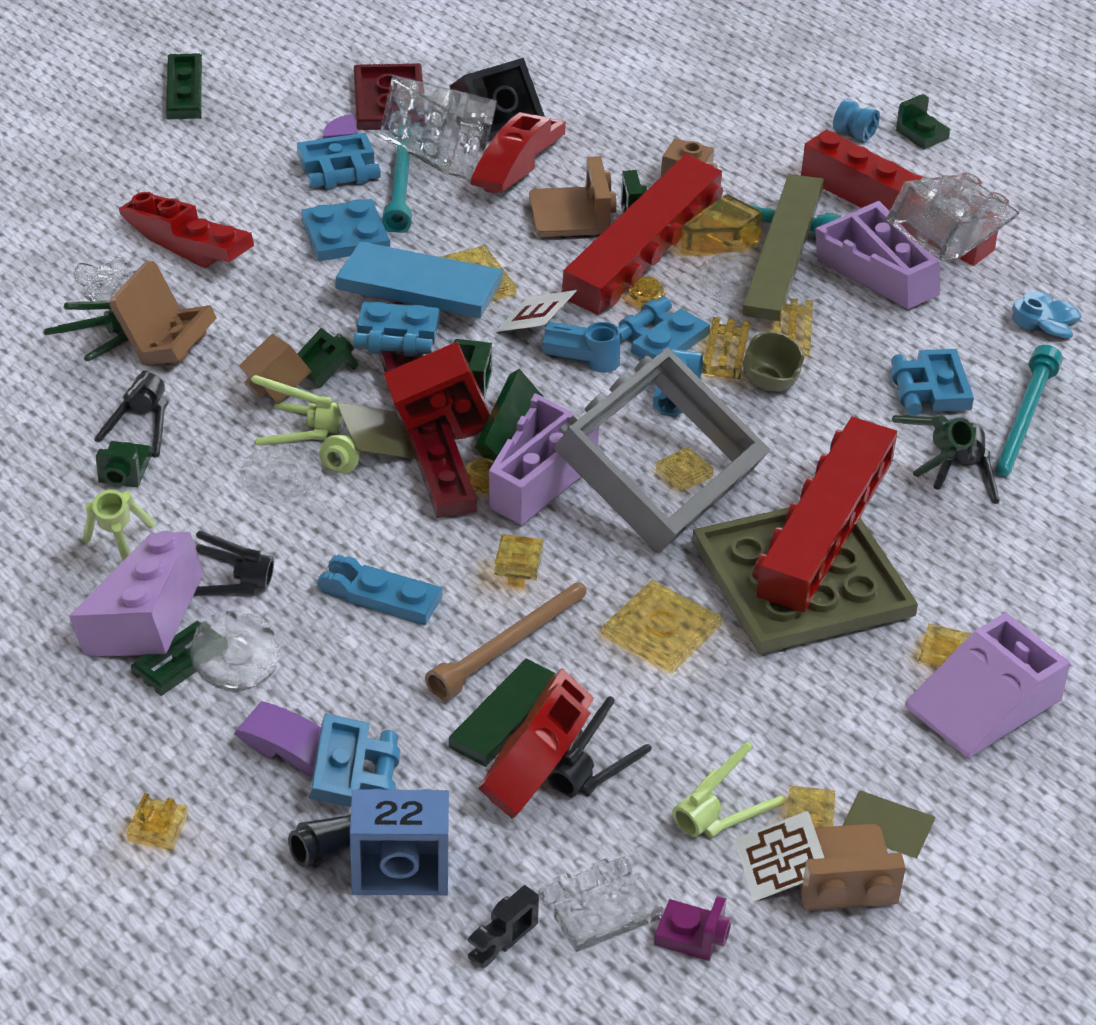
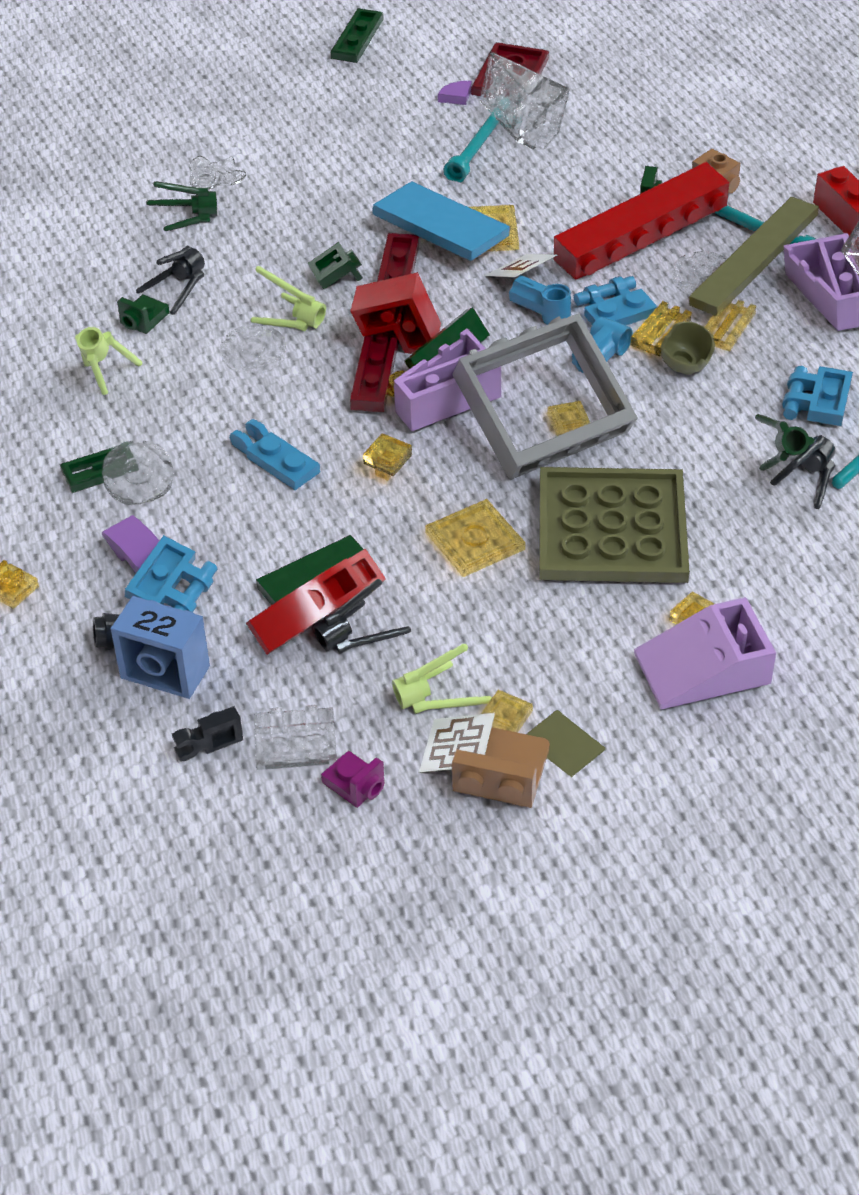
camera: 25 degrees right, 5 degrees up
(141, 599) = (90, 416): lavender wedge -> none
(155, 321) = (222, 206): medium nougat bracket -> none
(180, 230) = (285, 146): red slope -> none
(250, 566) = (183, 412): black plant -> none
(276, 362) = (288, 264): medium nougat brick -> none
(338, 153) = (438, 115): dark azure plate -> none
(340, 227) = (414, 165): dark azure plate -> none
(345, 448) = (303, 342): yellowish green plate -> none
(376, 430) = (336, 330): olive sticker -> none
(396, 328) = (397, 254): dark azure plate -> none
(448, 679) = (282, 535): medium nougat piece -> none
(479, 360) = (447, 297): dark green bracket -> none
(508, 85) = (594, 90): black slope -> none
(514, 151) = (577, 132): red slope -> none
(575, 209) = (601, 190): medium nougat bracket -> none
(646, 289) = (623, 267): clear yellow plate -> none
(722, 228) = (711, 230): clear yellow slope -> none
(825, 514) = (649, 480): red brick -> none

